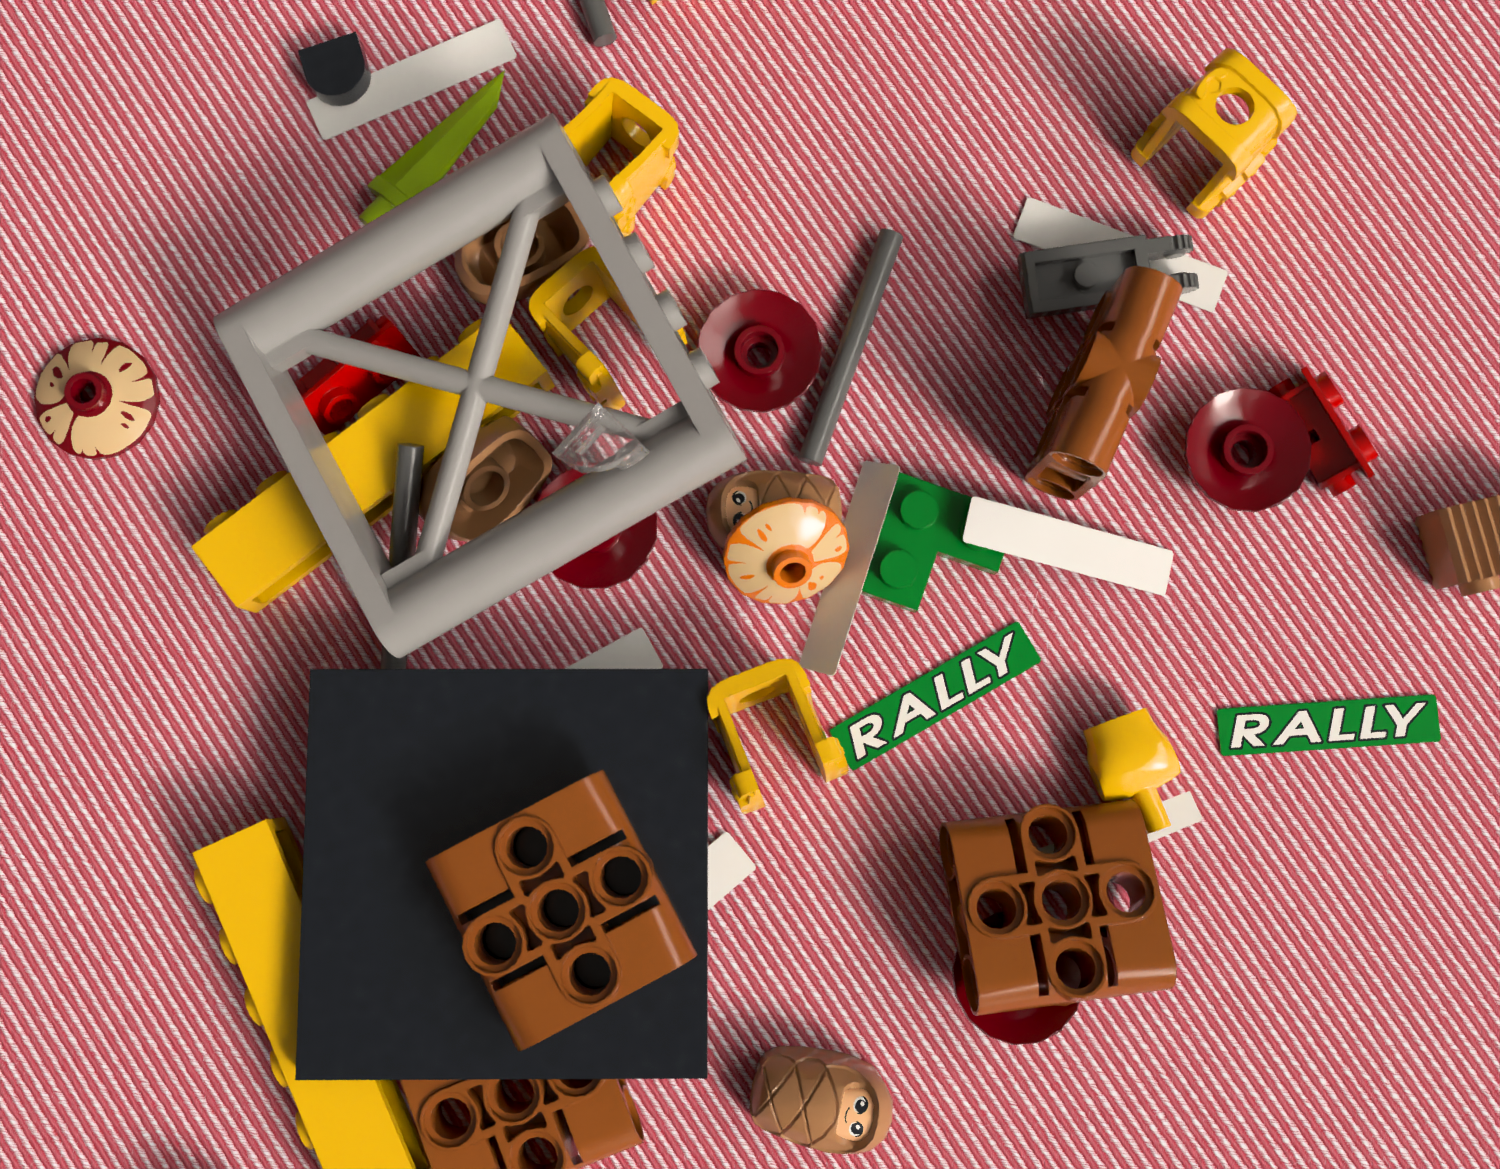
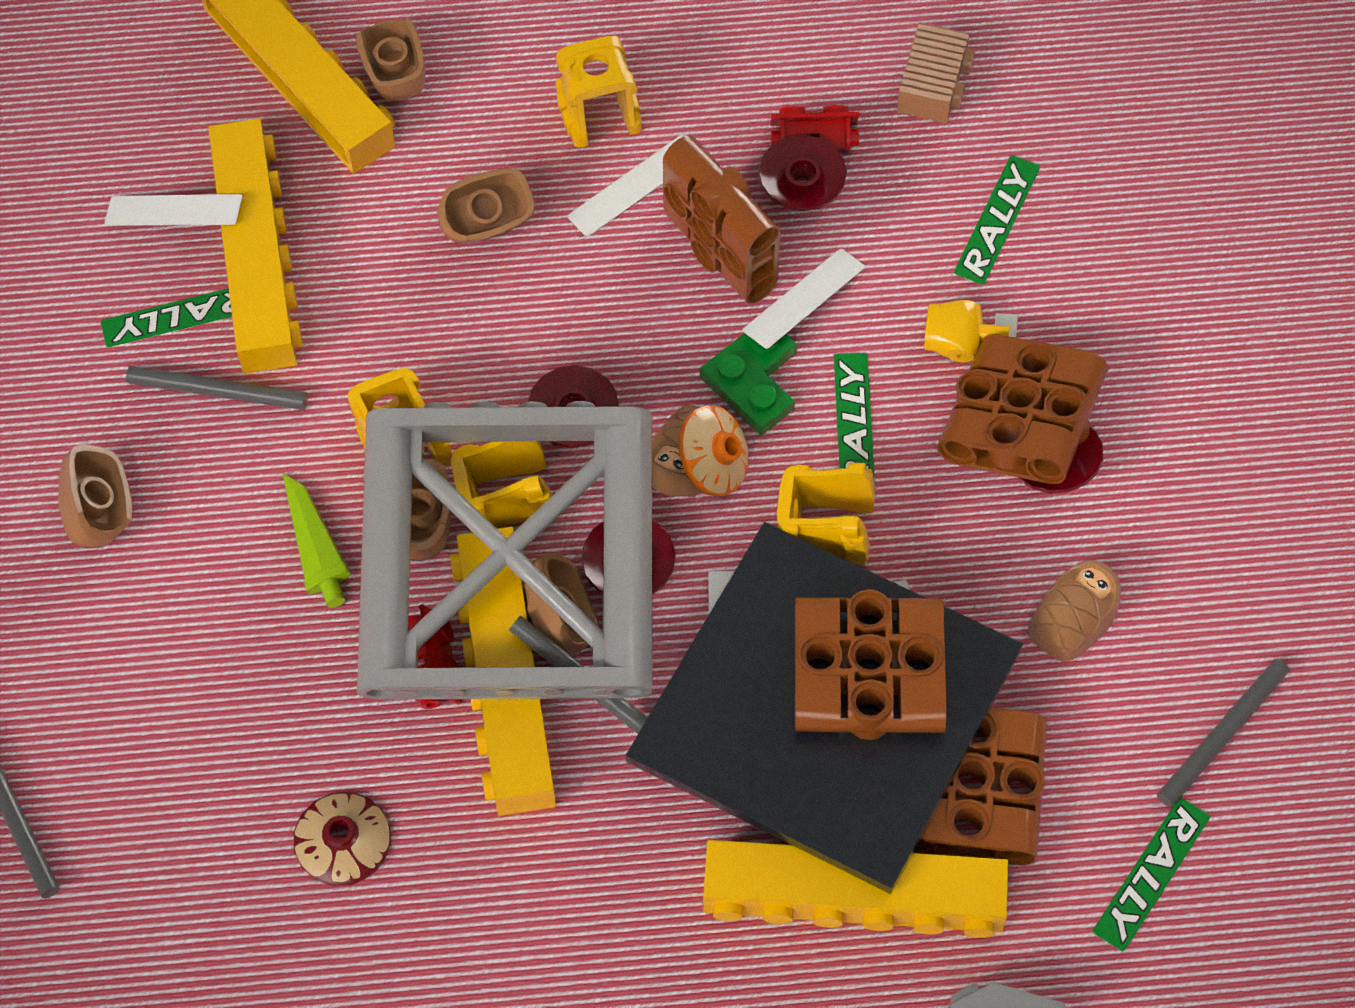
camera: 60 degrees left, 20 degrees down
(337, 69) = (216, 570): black tile -> none
(418, 78) = (250, 533): white sticker -> none
(600, 444) = (595, 483): clear tile -> none
(841, 597) = (762, 443): white sticker -> none
(850, 347) = (600, 358): dark grey bar -> none
(970, 92) = (485, 205): none -> medium nougat piece
(1079, 274) = (639, 203): dark grey hinge -> none

